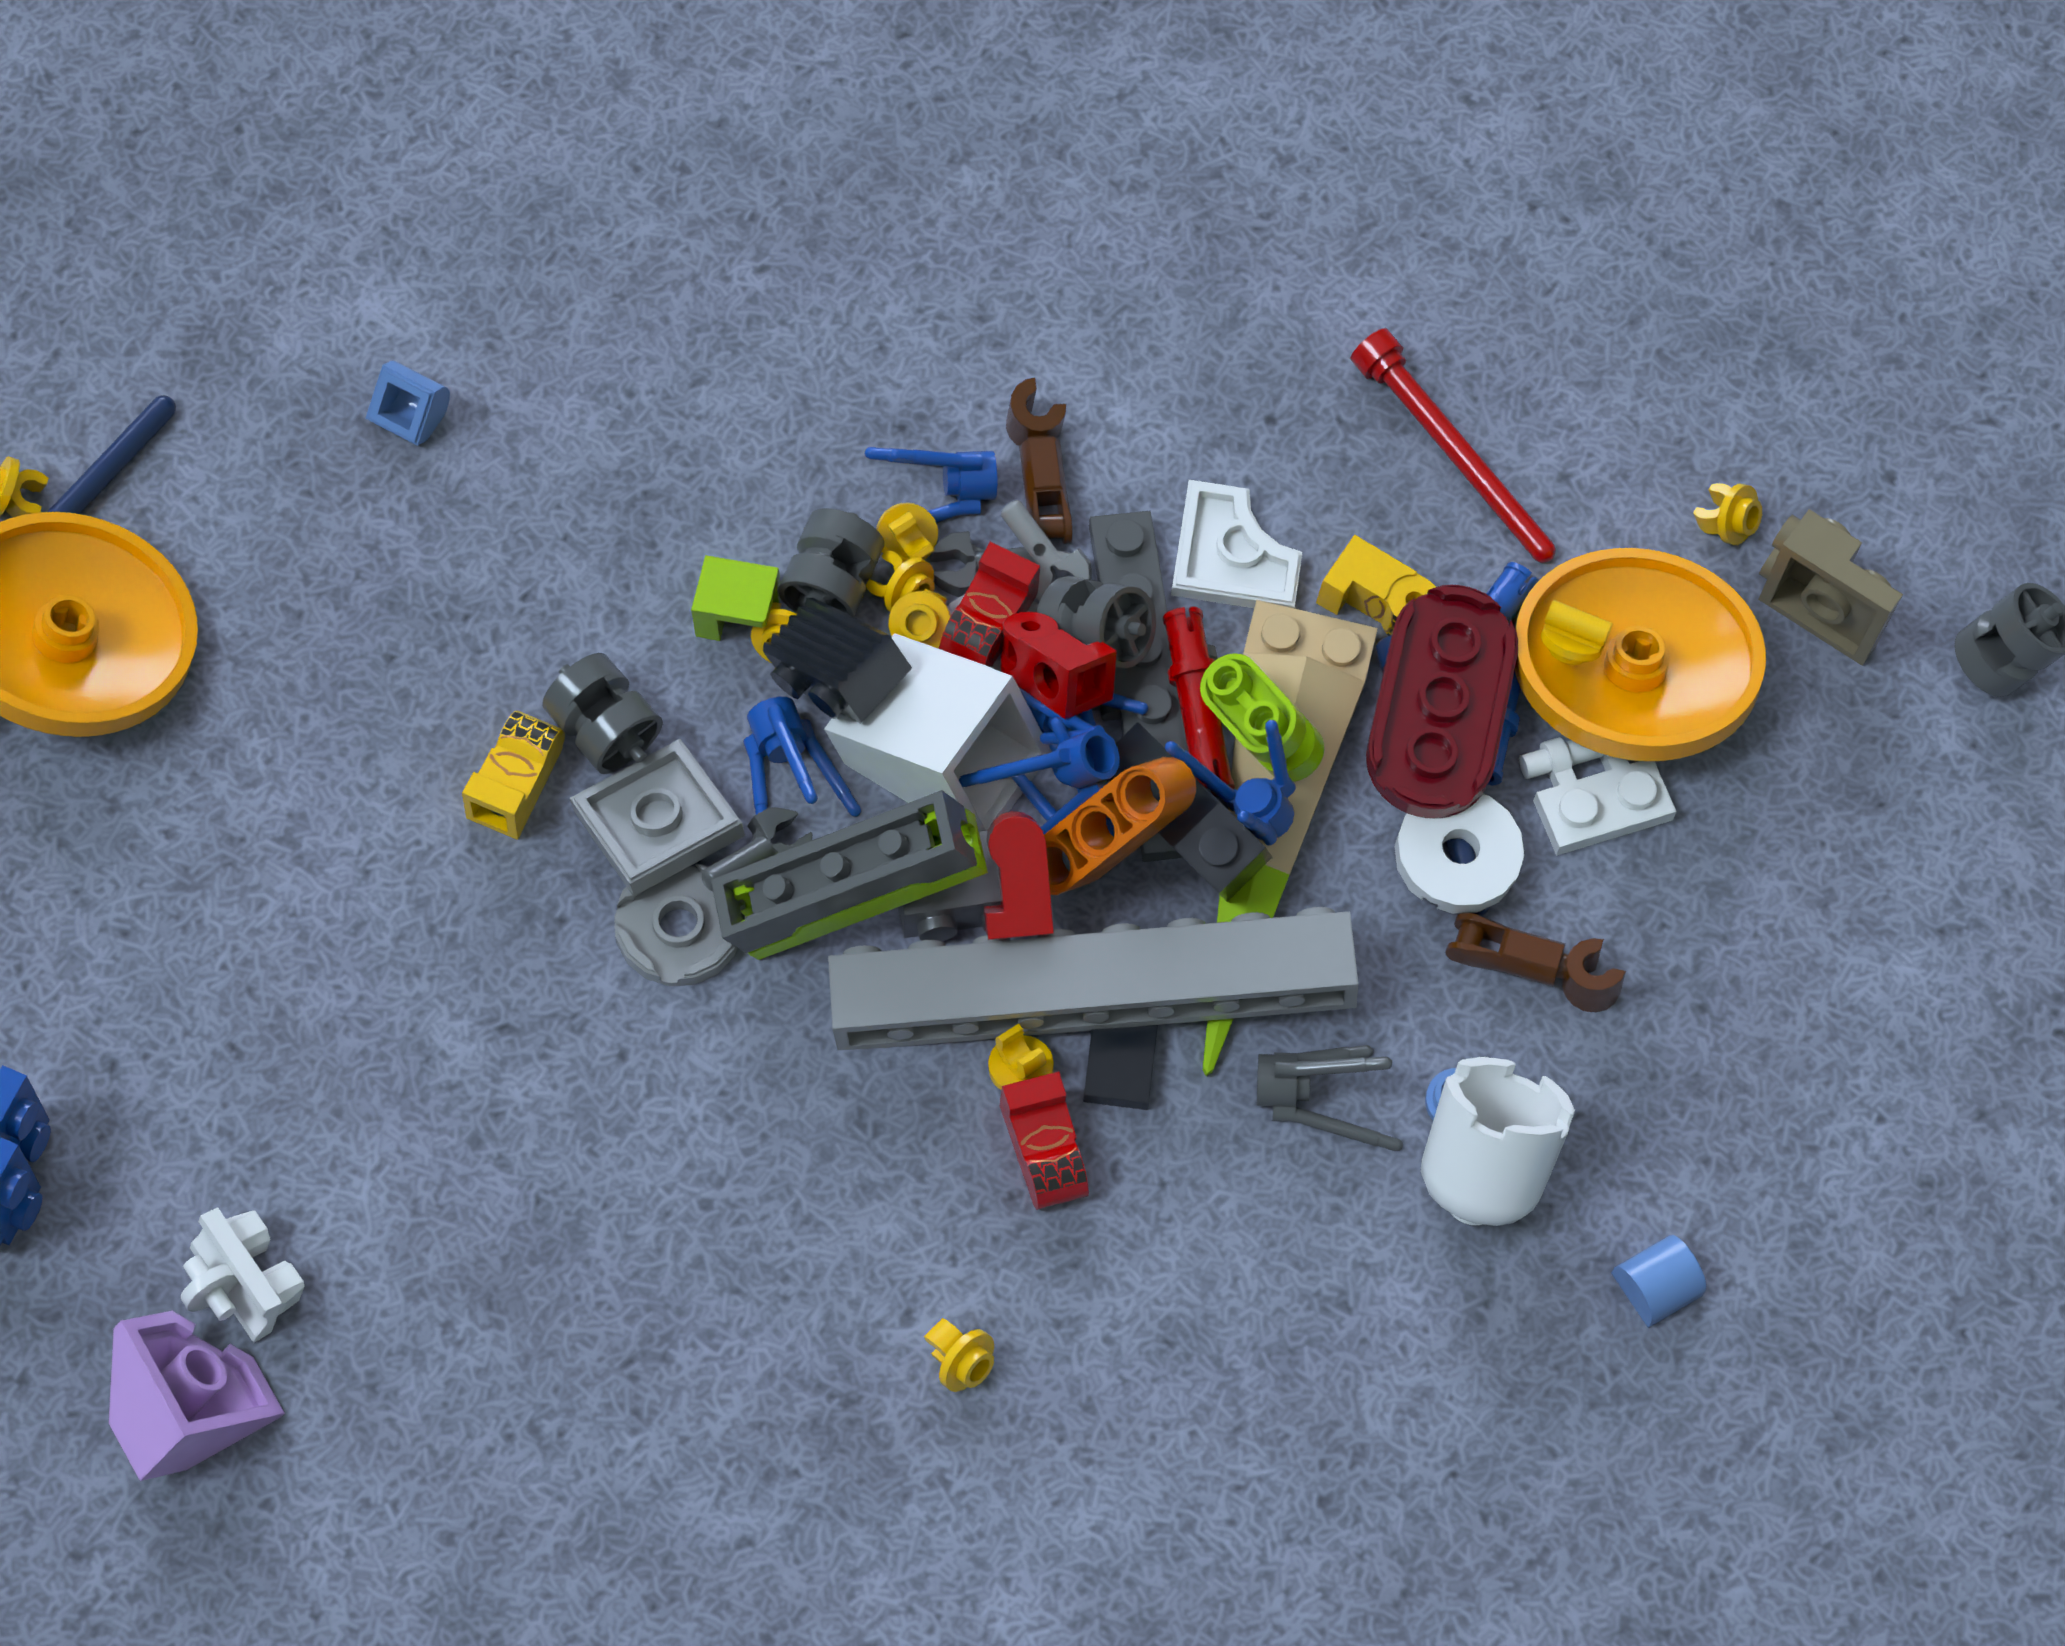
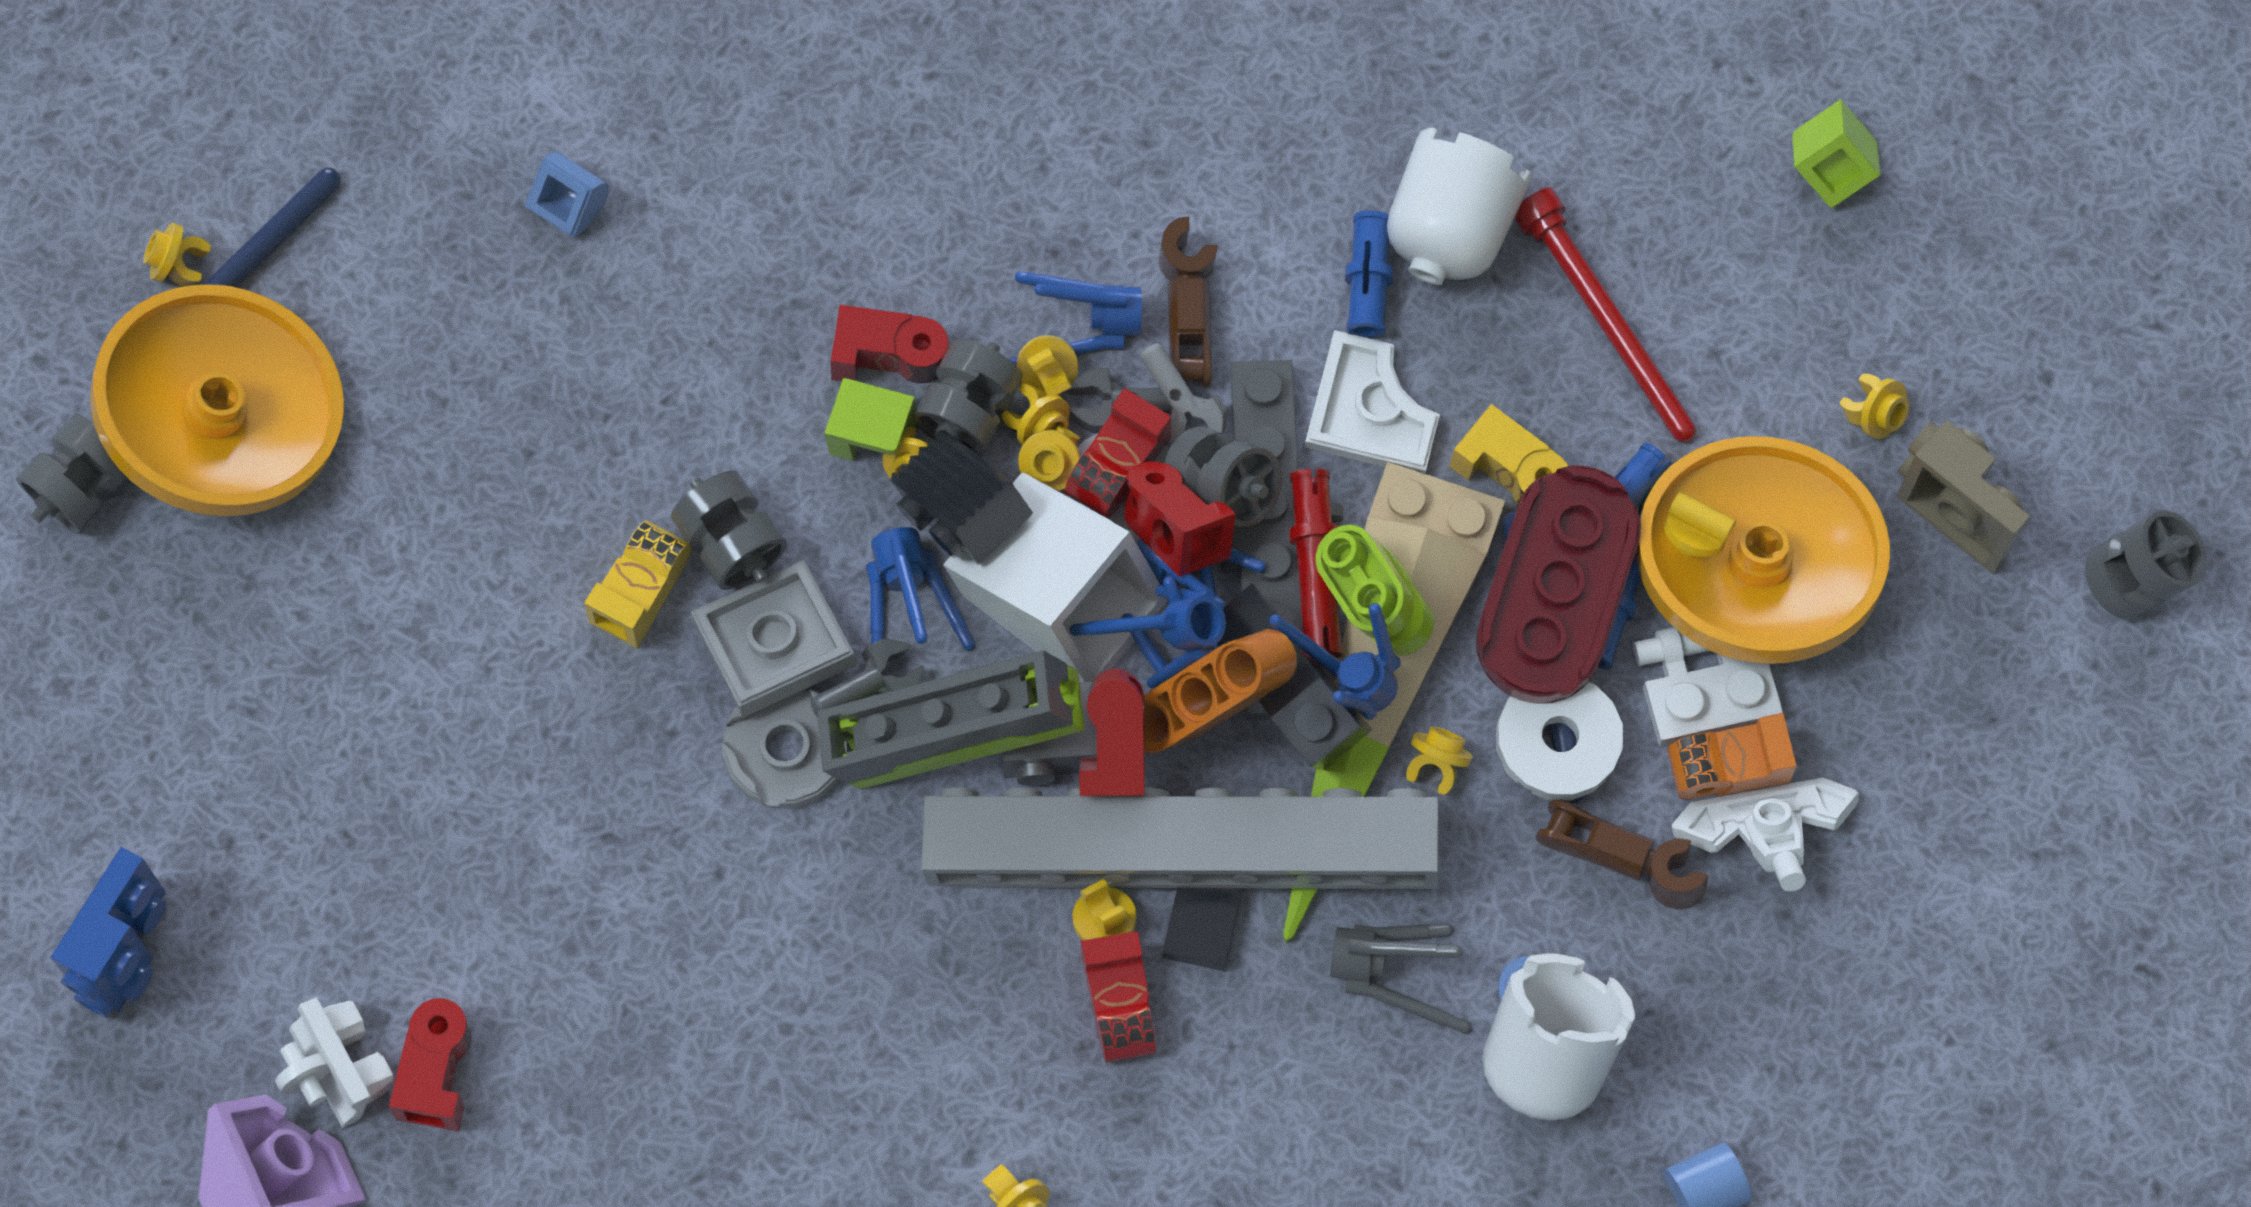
camera: 10 degrees right, 5 degrees up
(342, 1250) = (423, 1083): none -> red leg
(745, 523) = (887, 343): none -> red leg
(1214, 392) = (1371, 271): none -> blue pin
(1296, 349) = (1454, 206): none -> white cylinder
(1341, 872) = (1441, 749): none -> yellow plate
(1634, 859) = (1733, 759): none -> orange leg
(1659, 279) = (1835, 153): none -> lime panel
(1676, 919) = (1768, 822): none -> white piece

